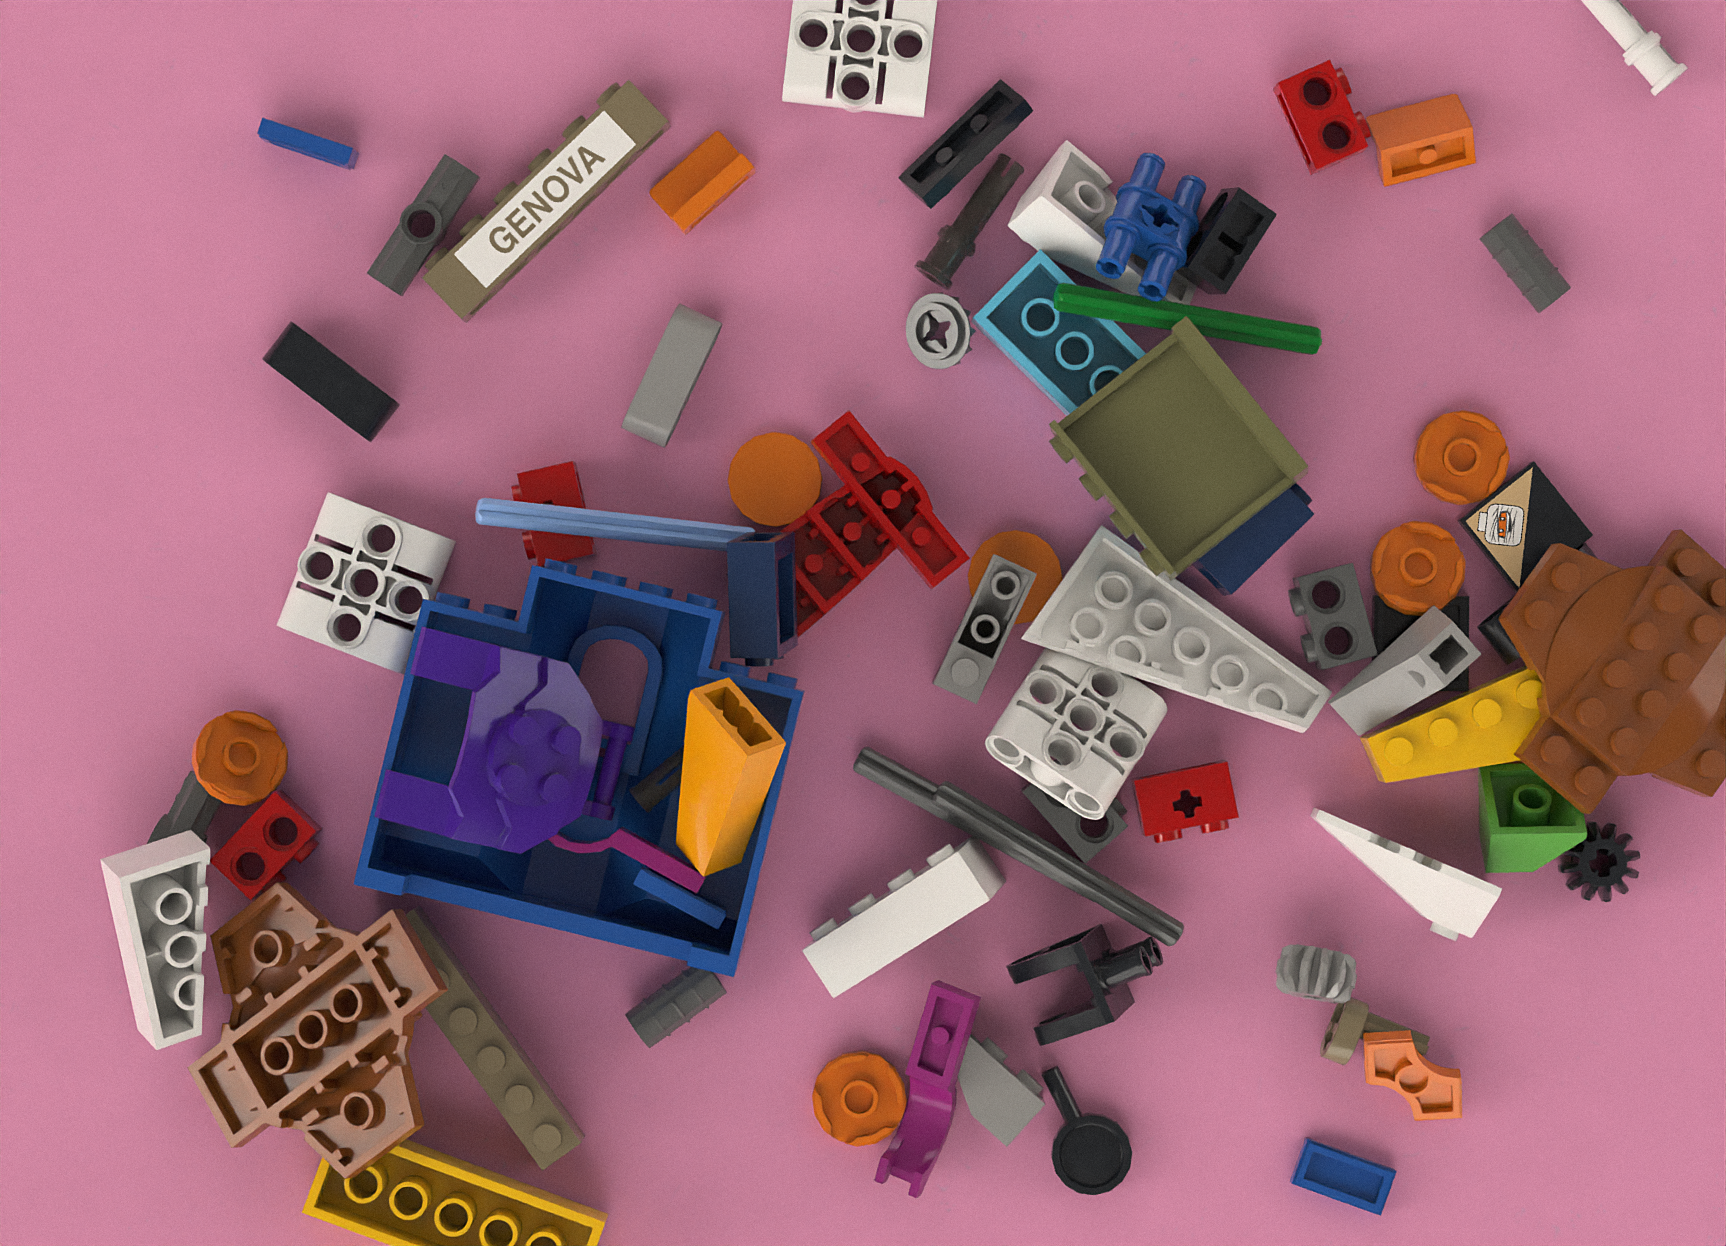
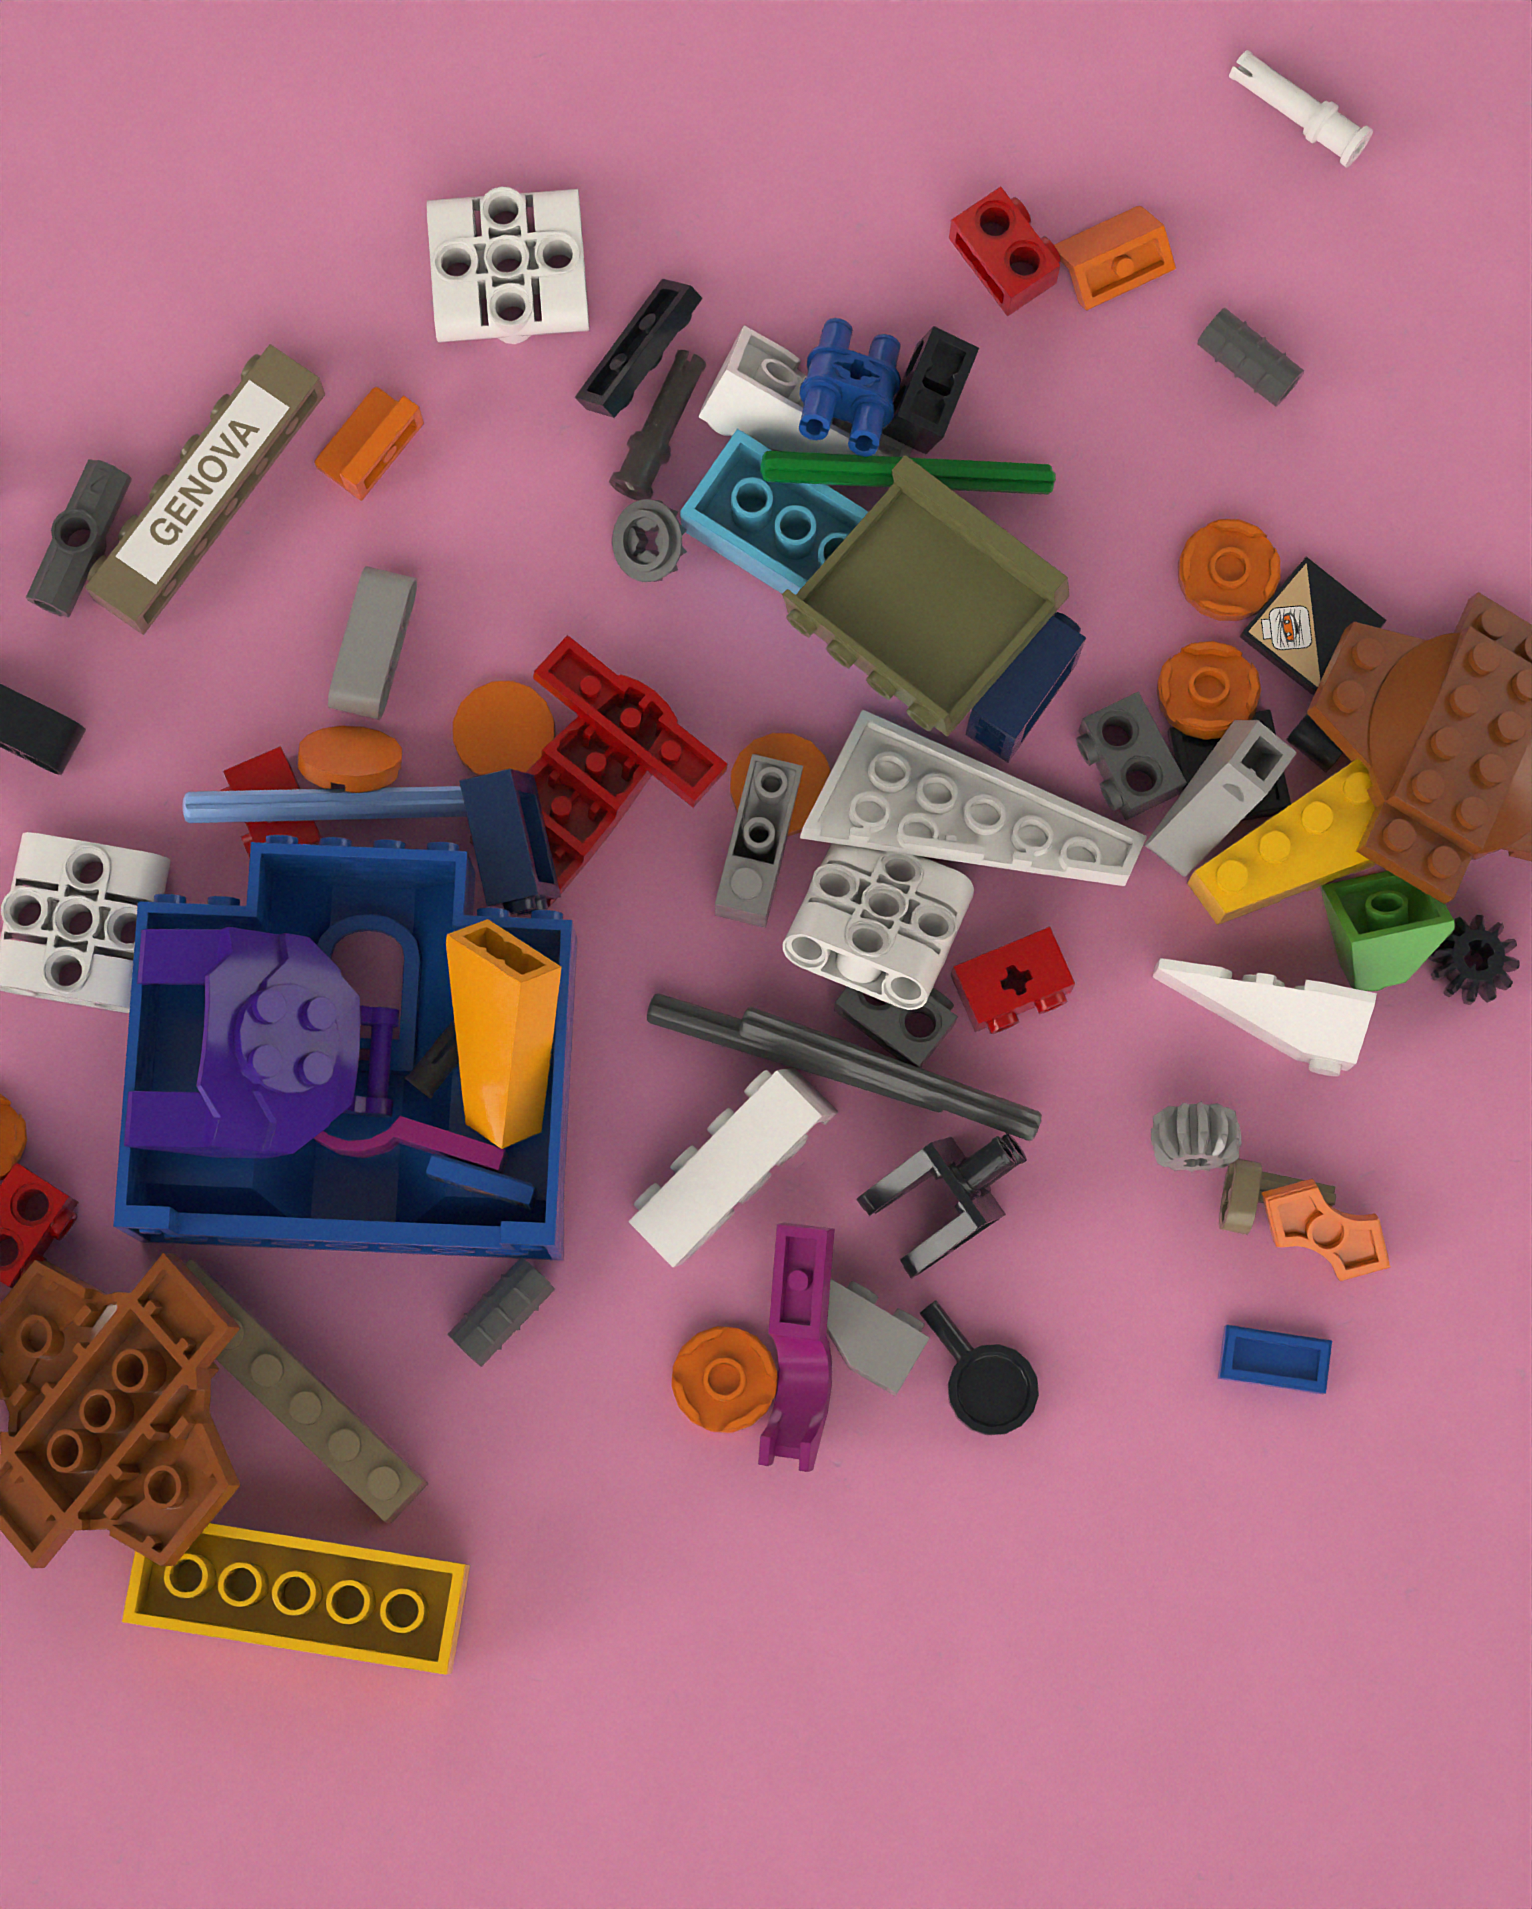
camera: 15 degrees left, 10 degrees down
(632, 482) = (350, 756): none -> orange tile

